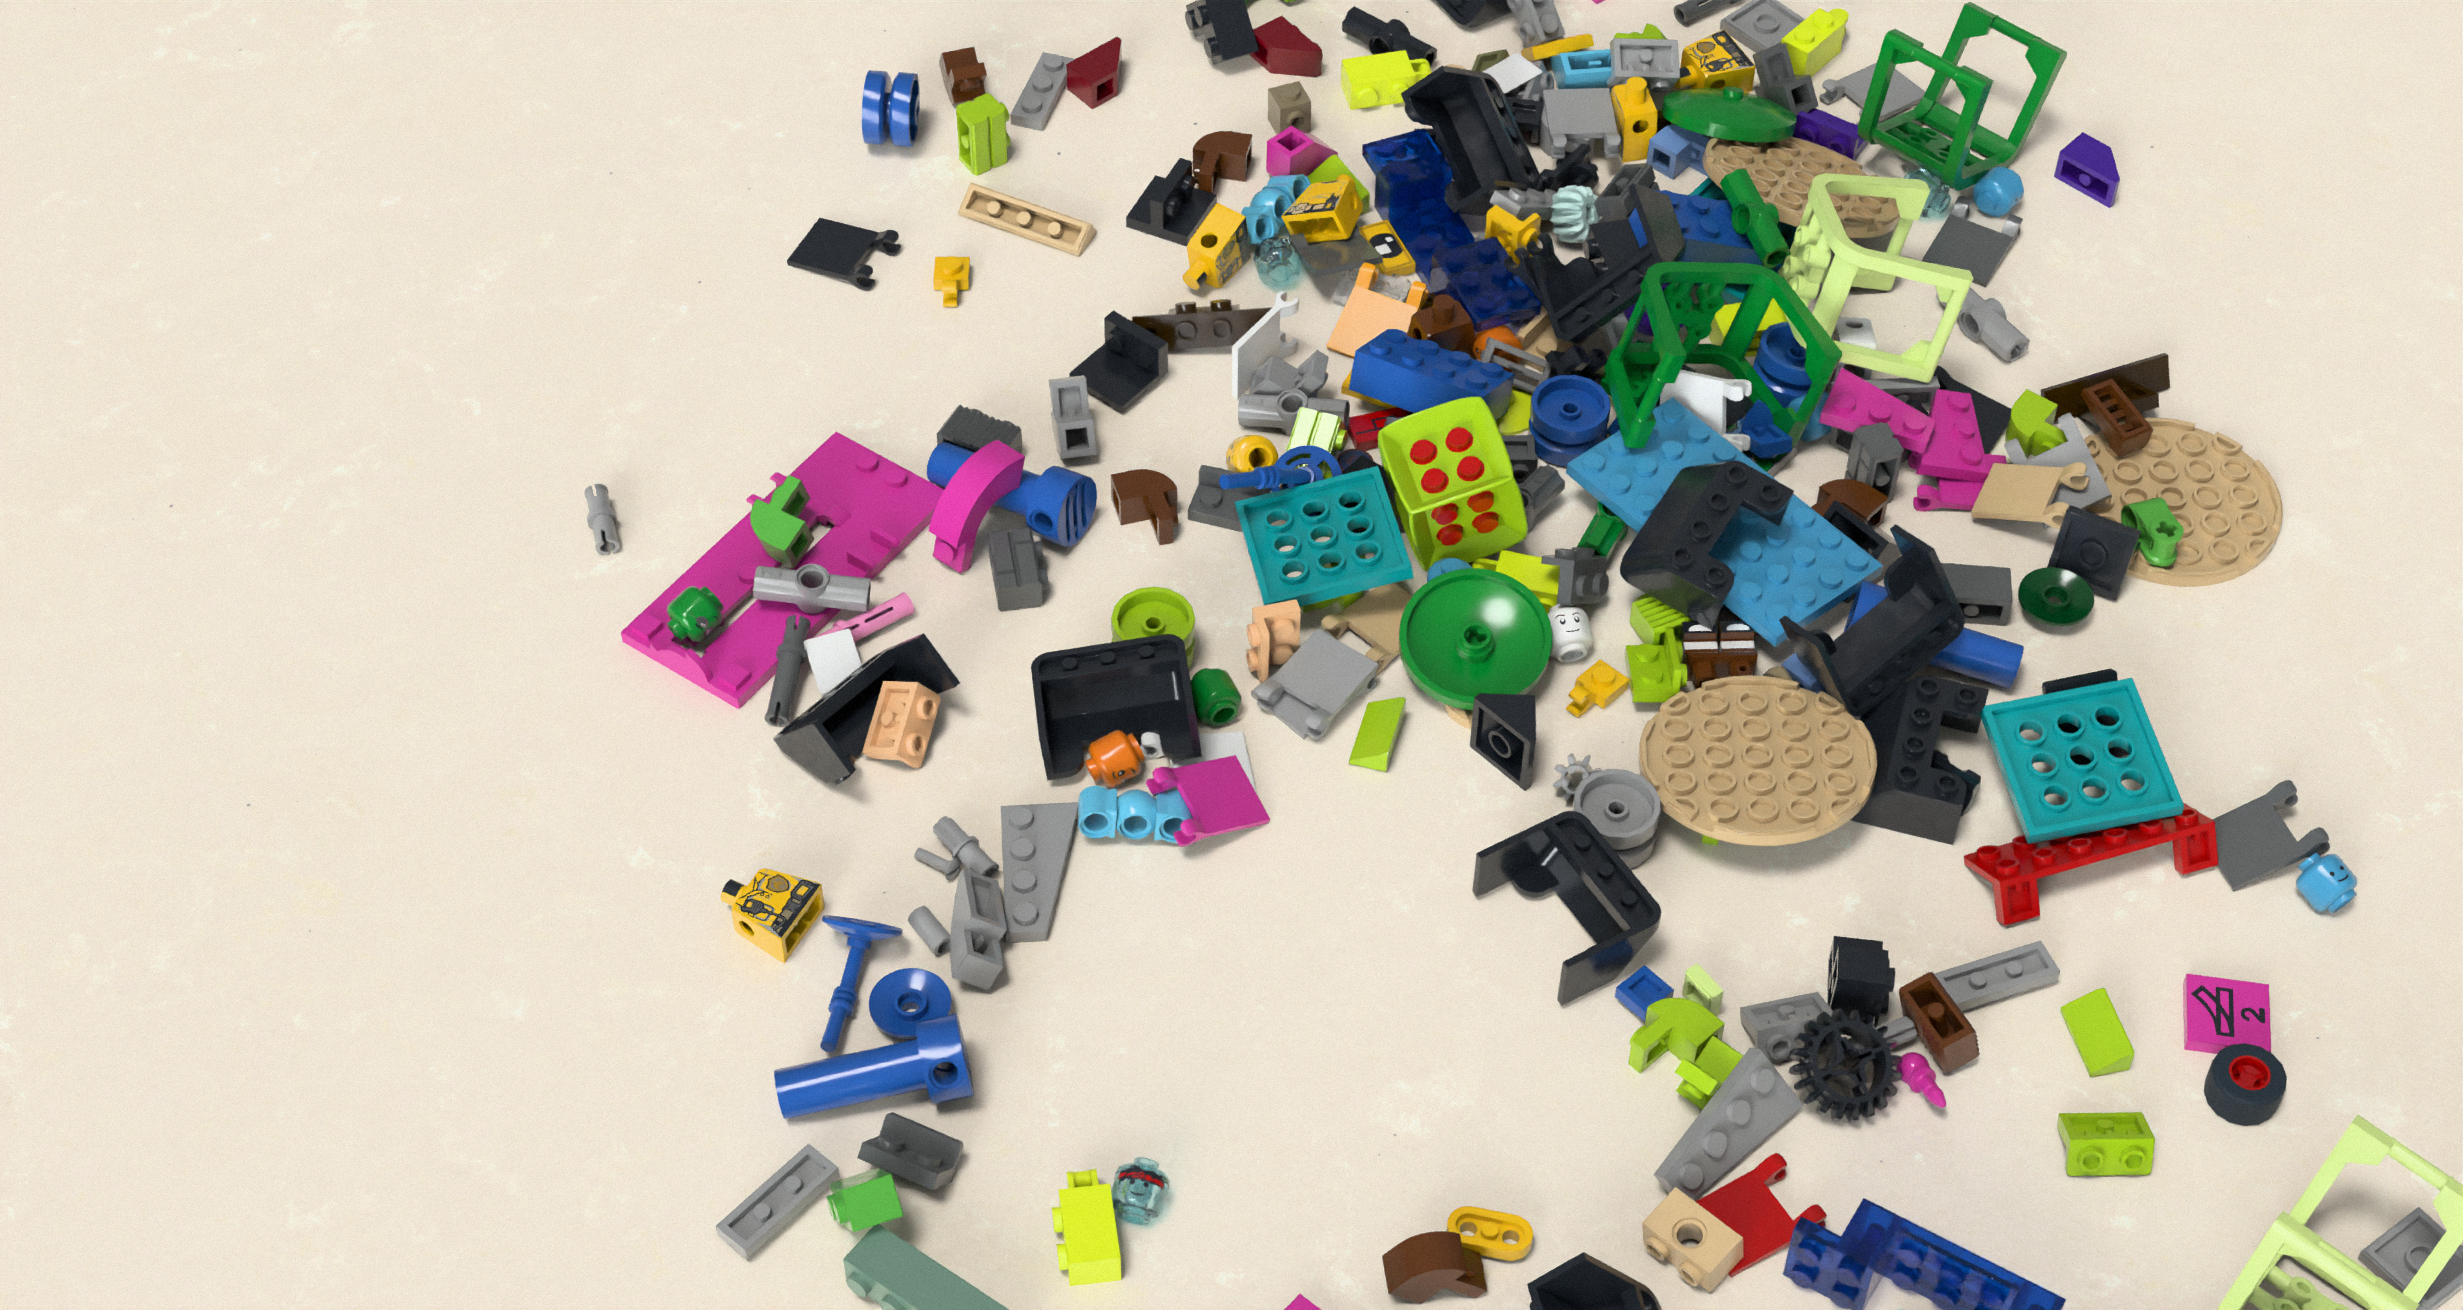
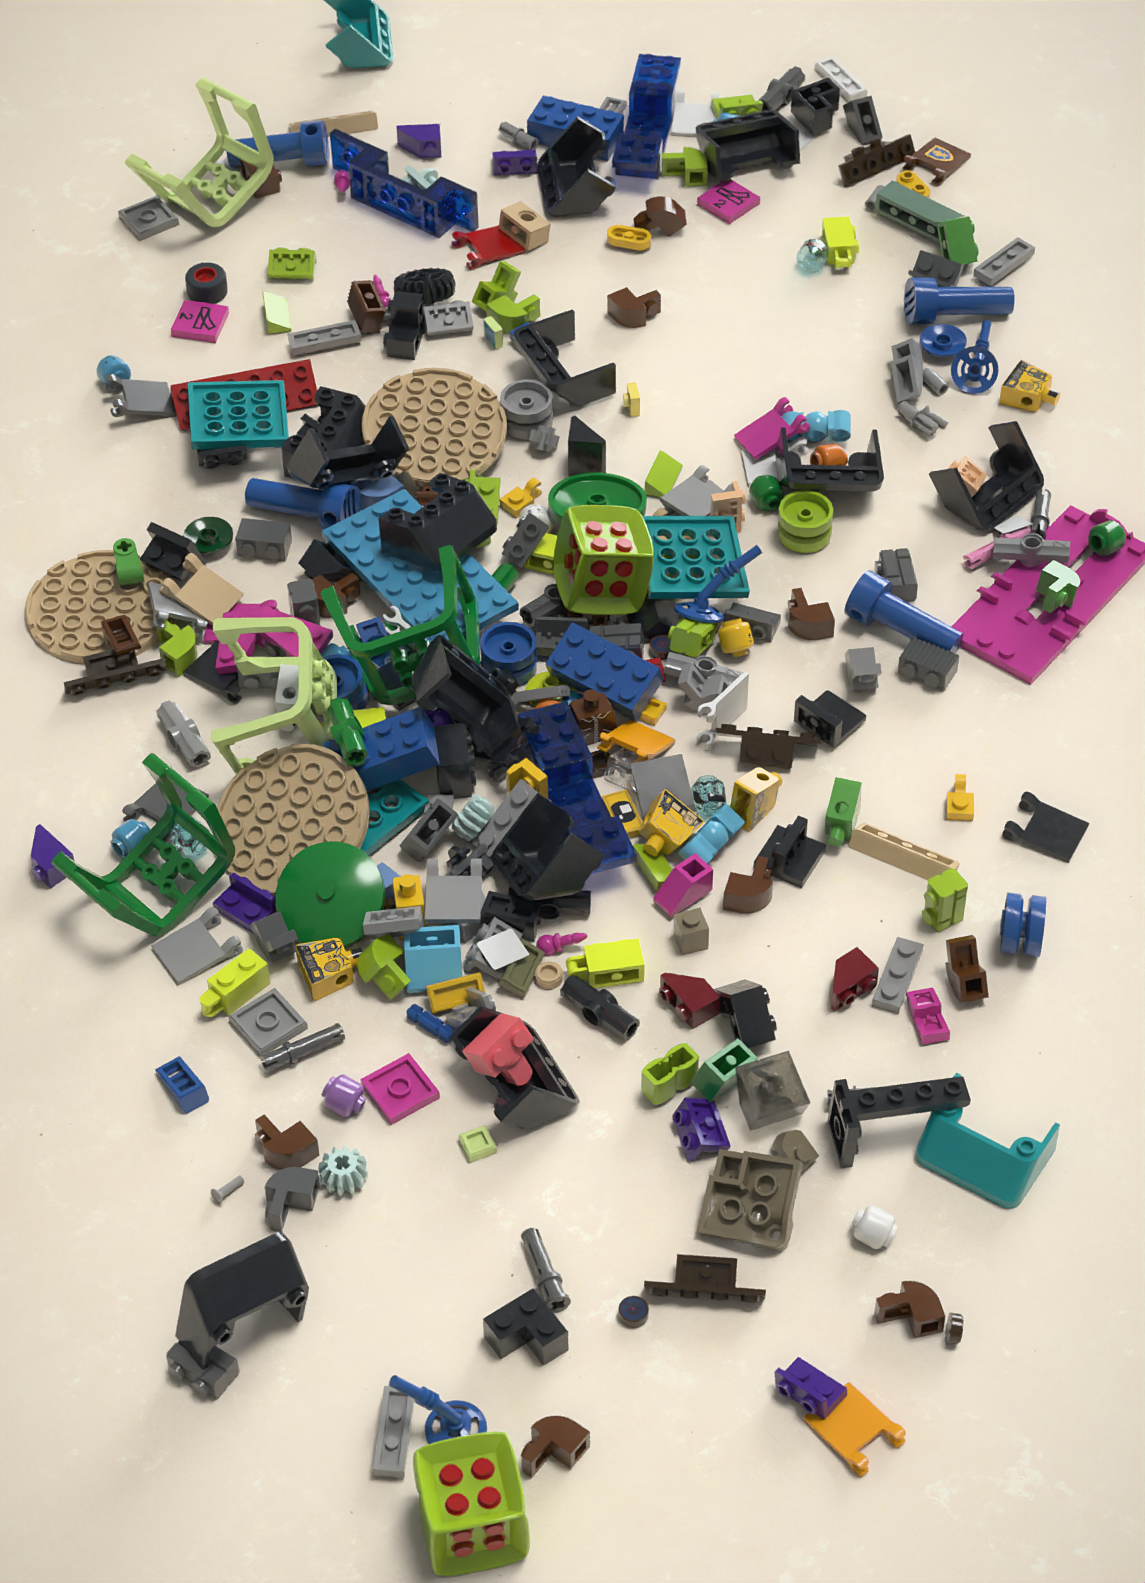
camera: 175 degrees left, 0 degrees up
(968, 497) = (926, 580): dark pink arch -> none
(1010, 49) = (927, 1015): none -> dark pink slope
(1033, 865) = (876, 413): light grey wing -> none
(1103, 227) = (842, 810): none -> bright green torso
(1442, 863) = (632, 399): none -> light yellow plate
(1466, 1050) = (632, 310): none -> reddish brown brick
(1578, 25) = (430, 1023): none -> blue axle
(1733, 1122) = (478, 273): light grey wing -> none

